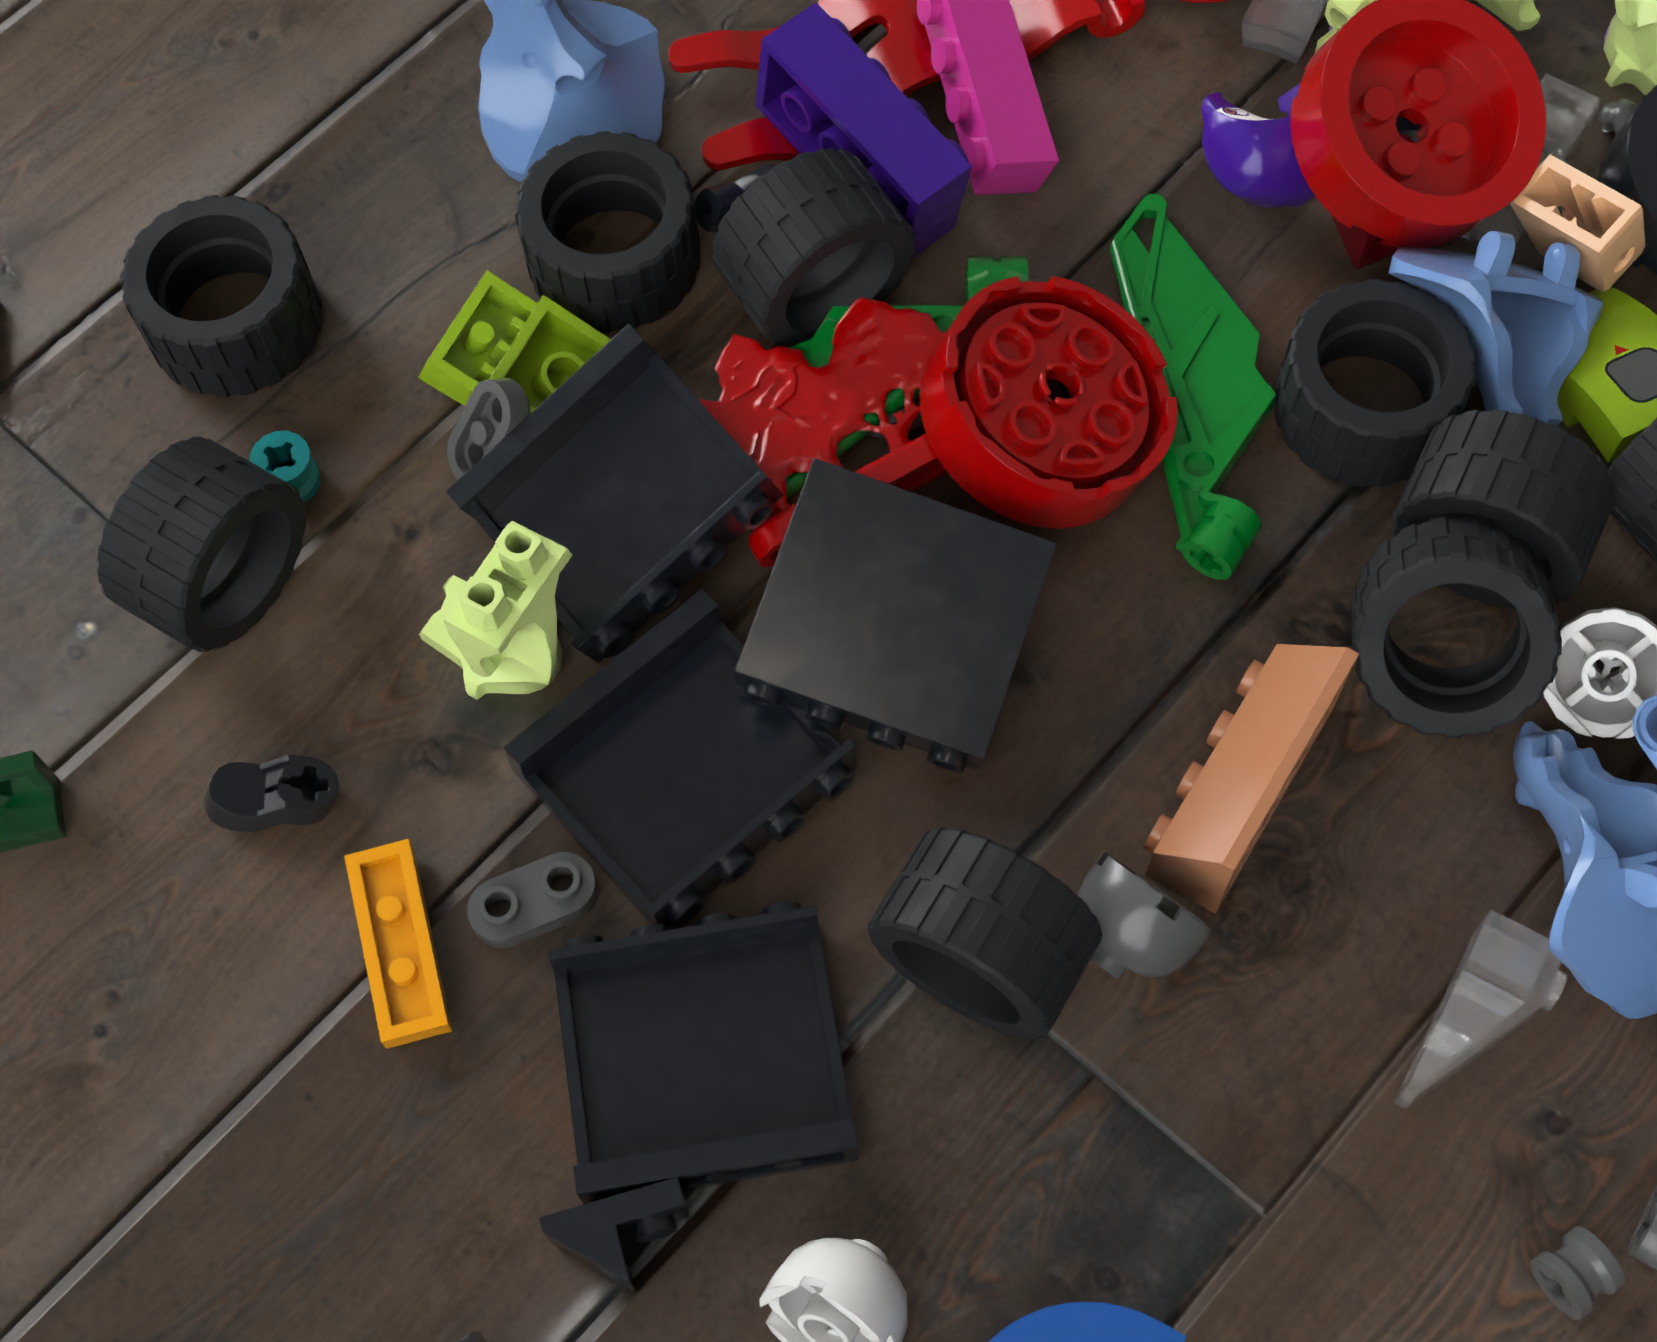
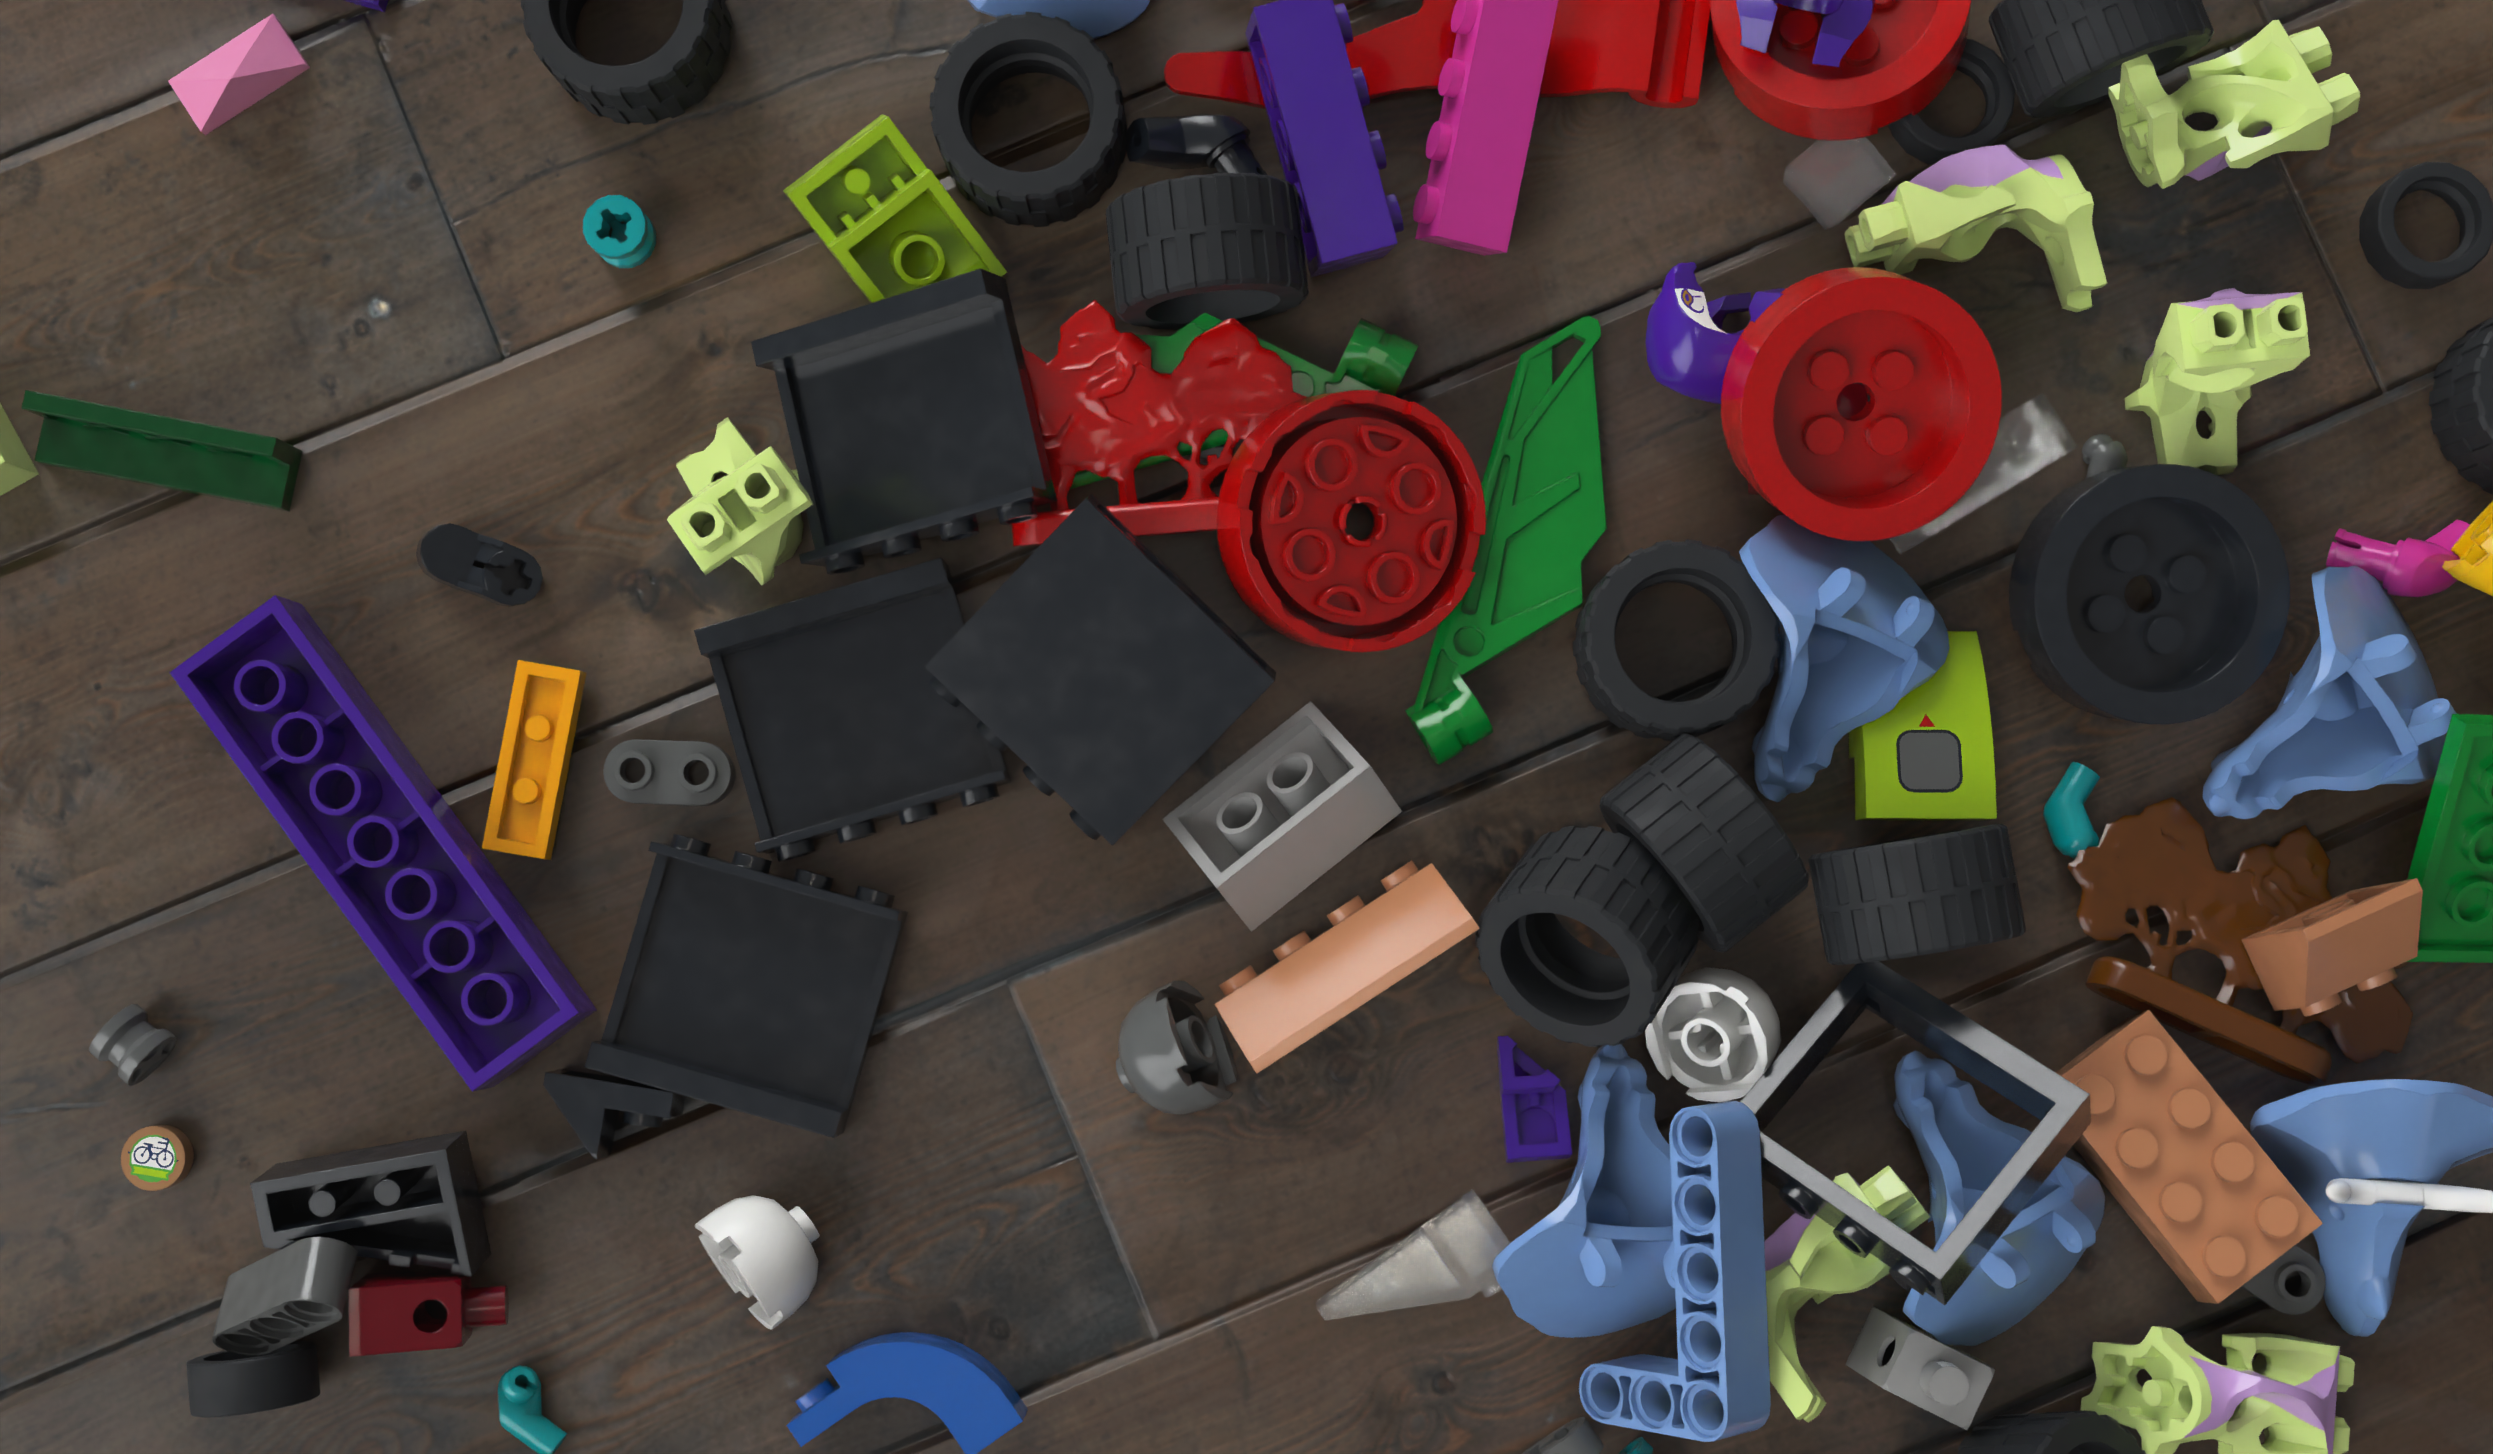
camera: 25 degrees right, 20 degrees up
(201, 543) = (498, 301): black tyre -> none
(287, 1077) = (383, 842): none -> dark purple brick
(486, 419) = (818, 289): dark grey plate -> none
(985, 932) = (1021, 1017): black tyre -> none
(1120, 676) = (1282, 815): none -> light grey slope
(1484, 827) = (1531, 1107): none -> dark purple slope
(1594, 219) = (1964, 586): light nougat torso -> none

